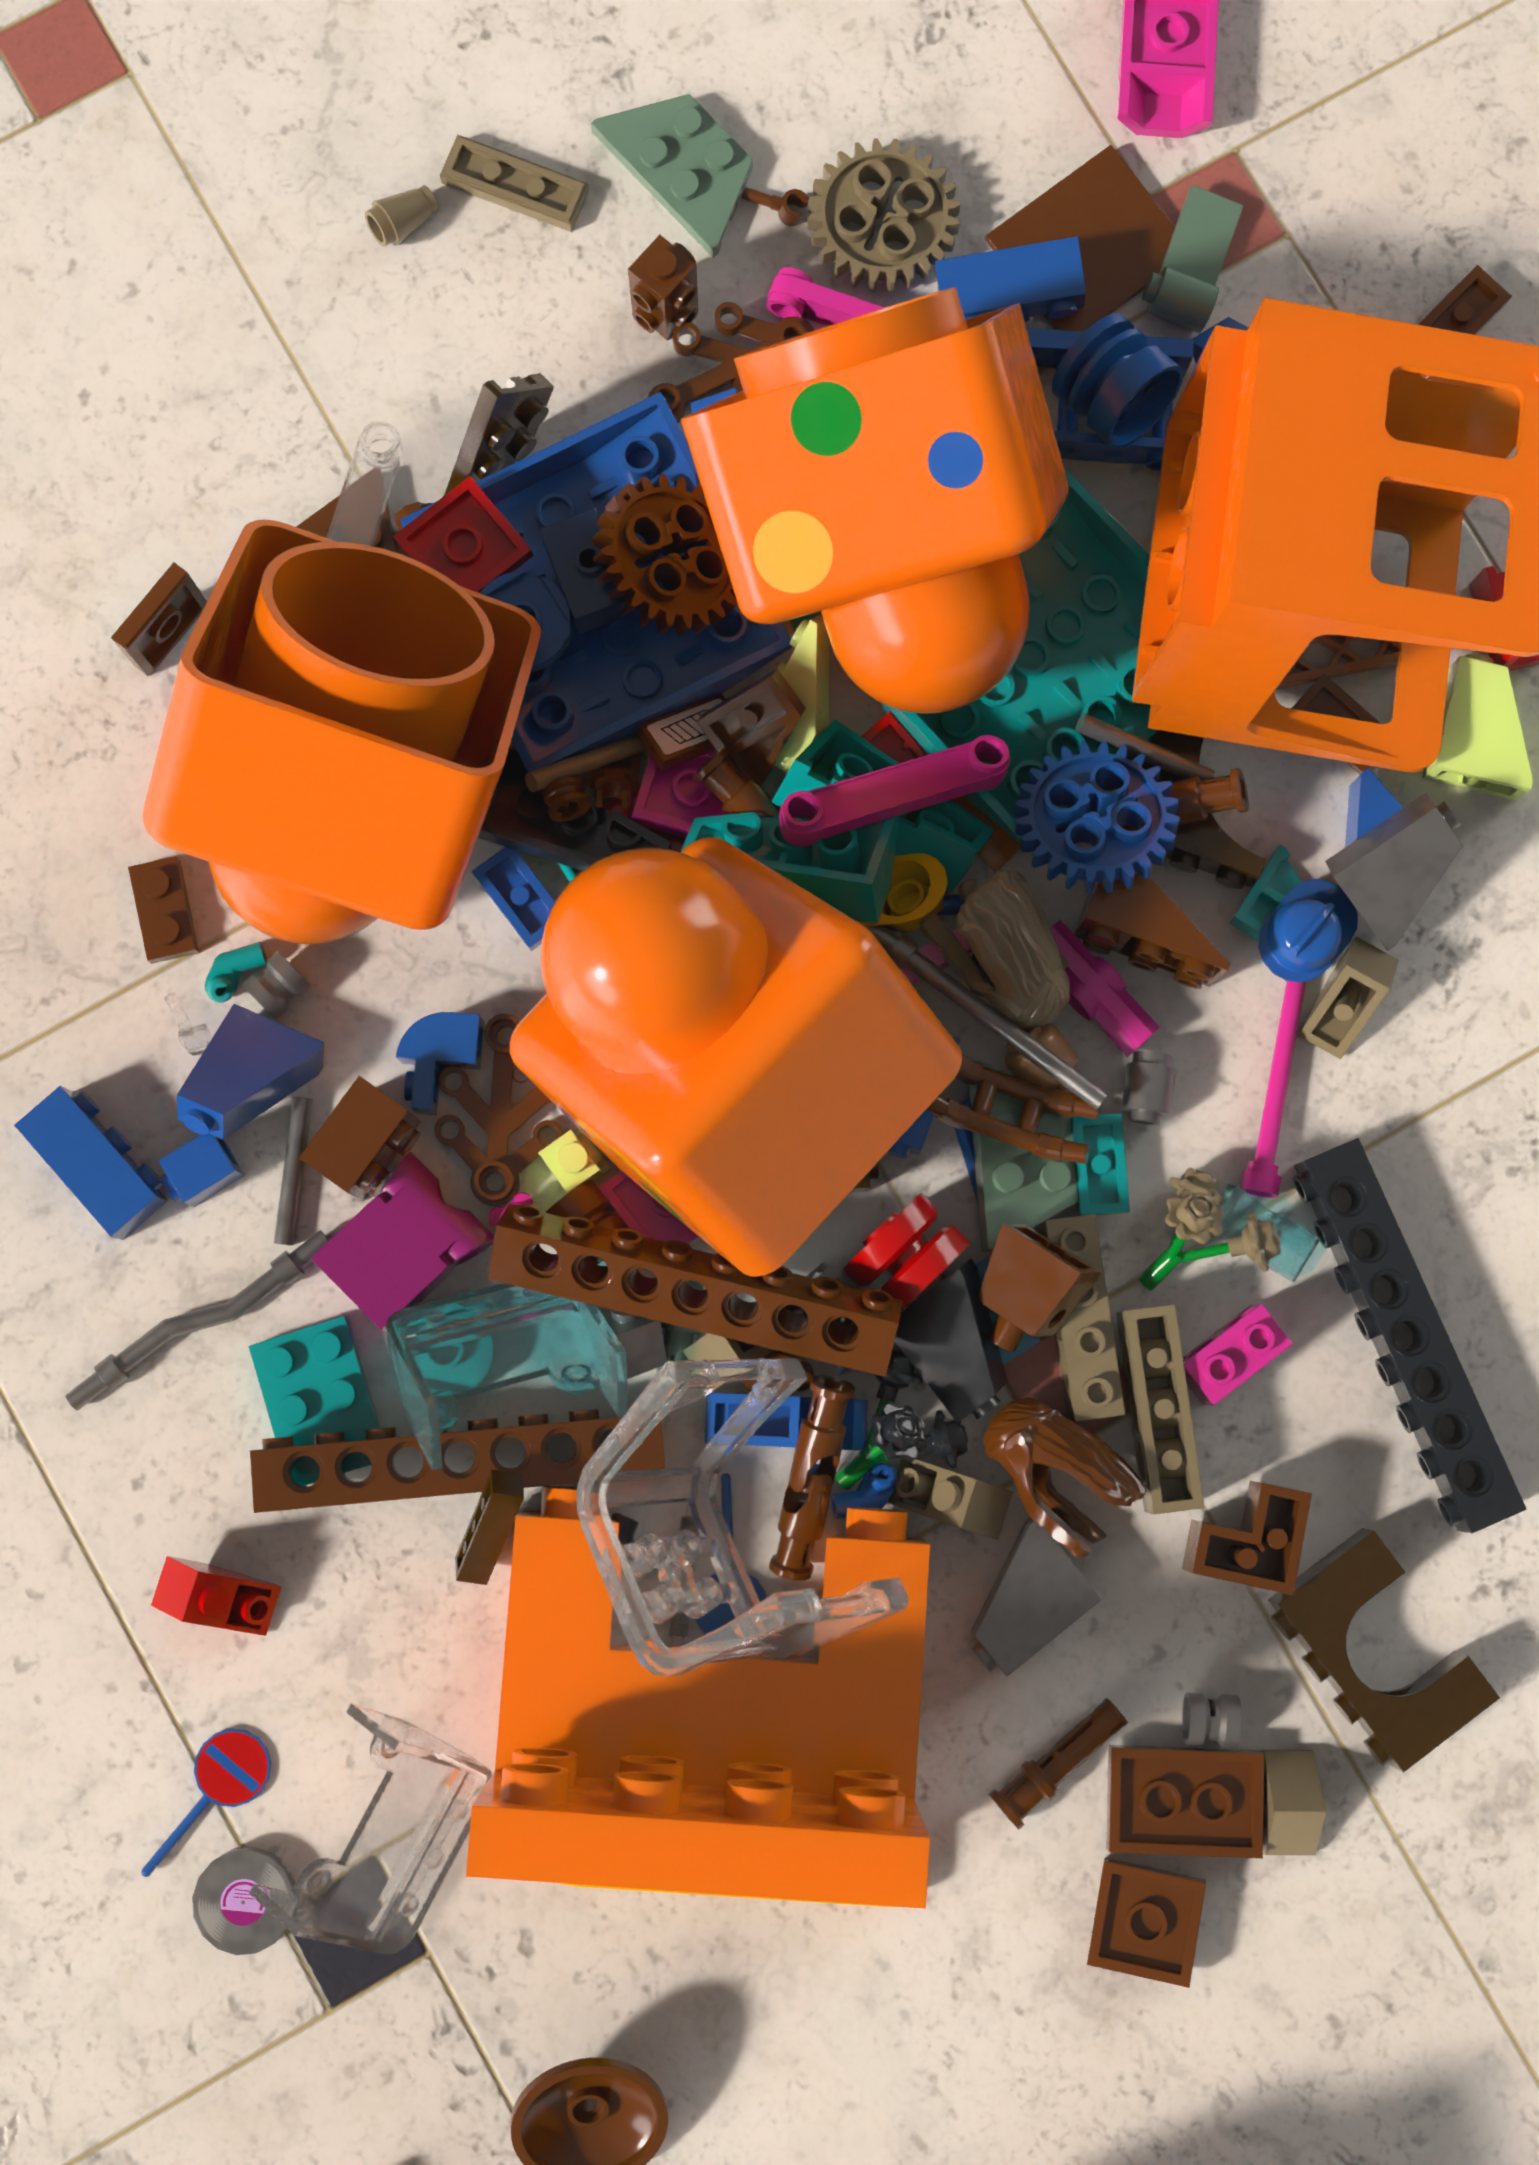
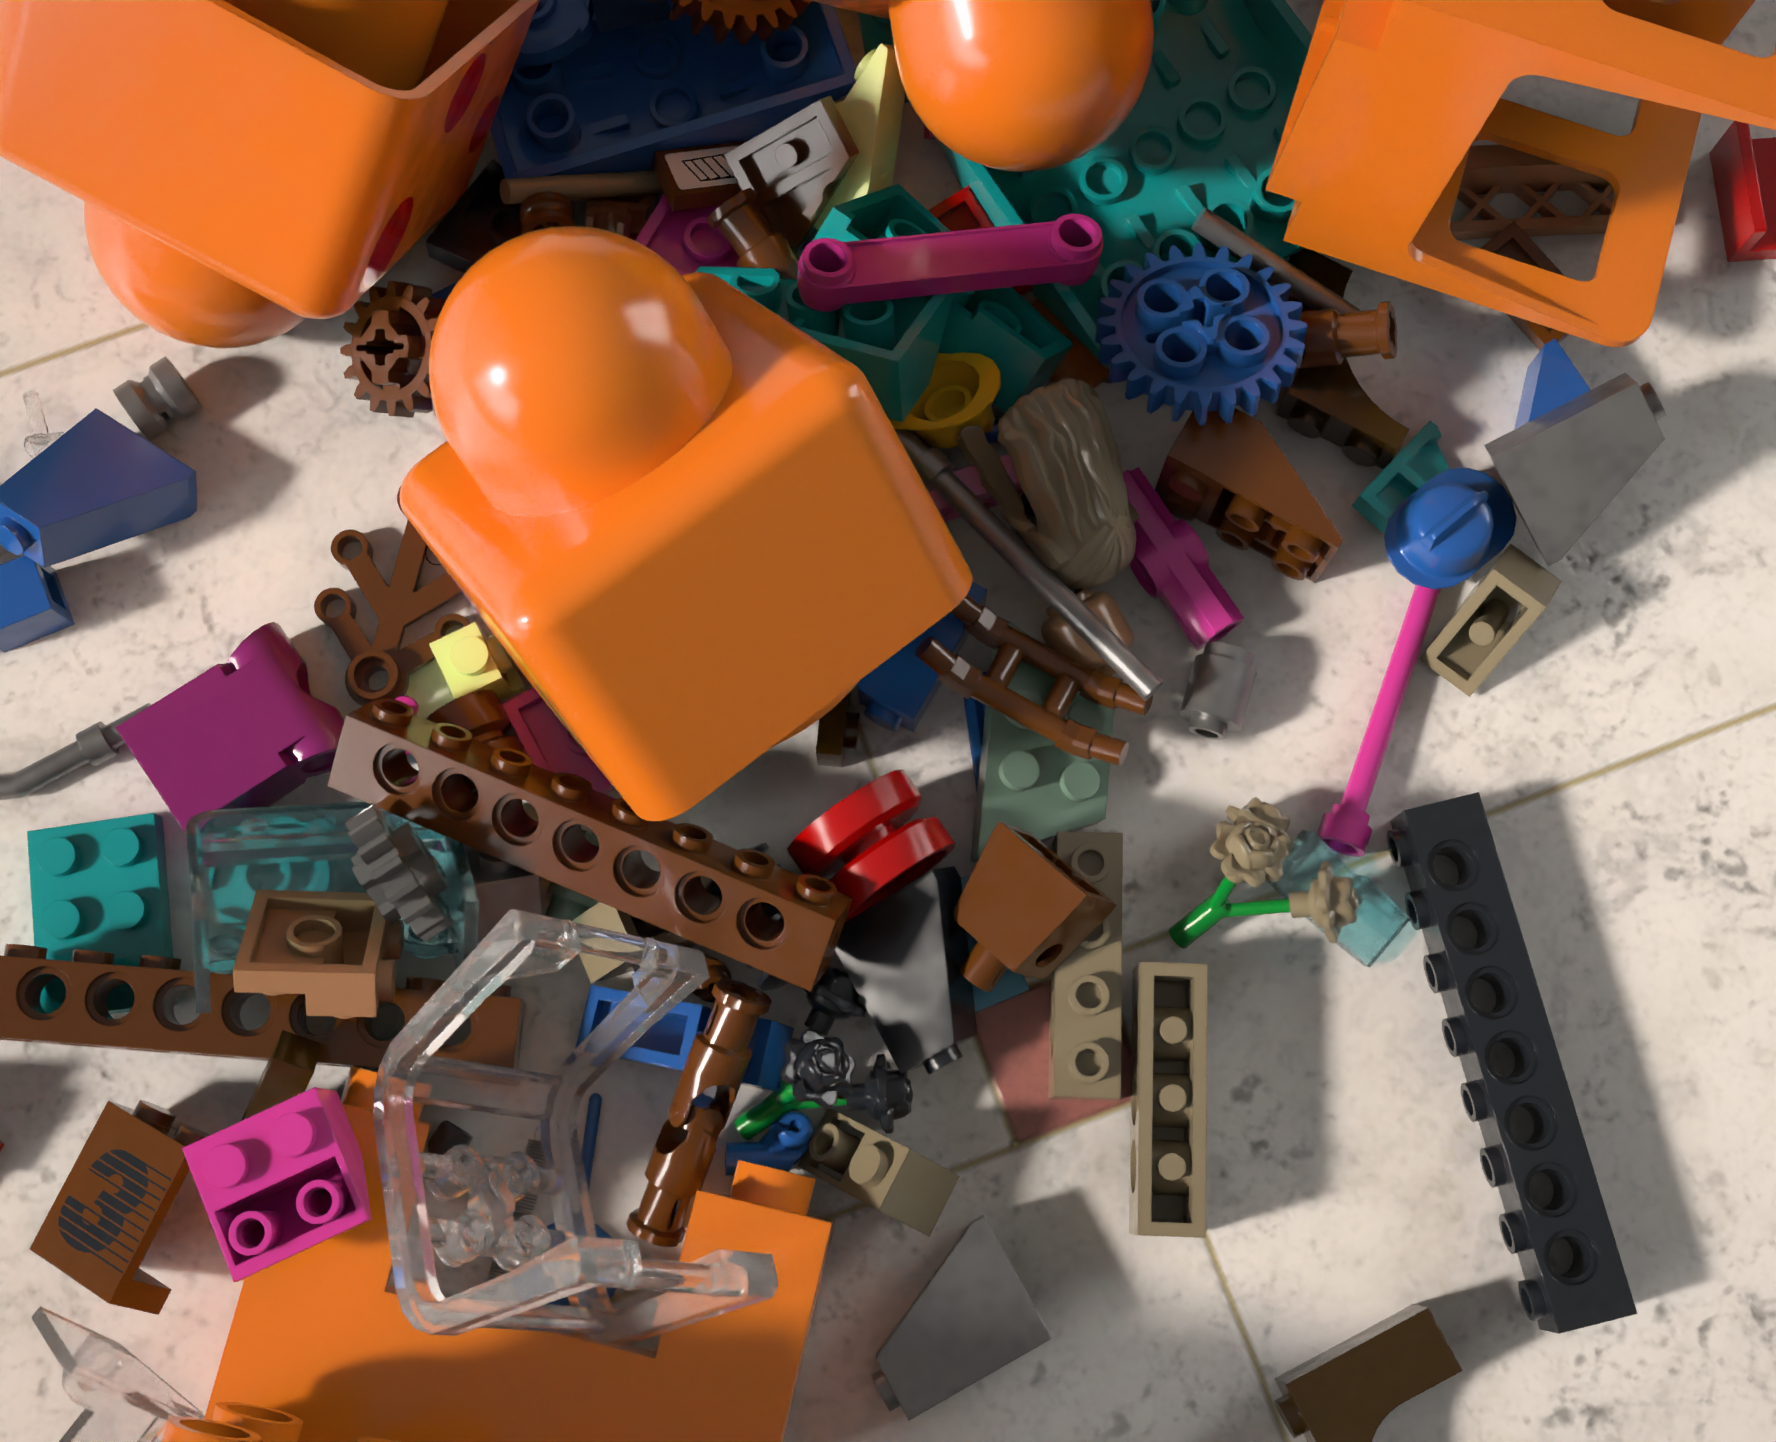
camera: 15 degrees right, 5 degrees down
(163, 910) = (45, 292): reddish brown plate -> none
(229, 968) = (108, 370): teal arm -> none
(293, 1171) = (132, 627): flat silver bar -> none
(362, 1140) = (212, 592): reddish brown brick -> none
(391, 1615) = (118, 1204): none -> reddish brown panel
(434, 1043) = (334, 498): blue brick -> none
(479, 939) = (393, 348): none -> reddish brown gear
(509, 1403) = (320, 947): none -> medium nougat plate
(525, 1585) = (281, 1181): none -> dark pink slope
(558, 1337) = (399, 873): none -> dark grey gear
(1034, 1437) = (997, 1109): reddish brown hair -> none
(1103, 1179) = (1144, 785): teal plate -> none
(1234, 1354) = (1276, 1046): dark pink brick -> none
(1263, 1550) = (1276, 1309): reddish brown brick -> none
(1482, 732) = (1703, 324): yellowish green slope -> none

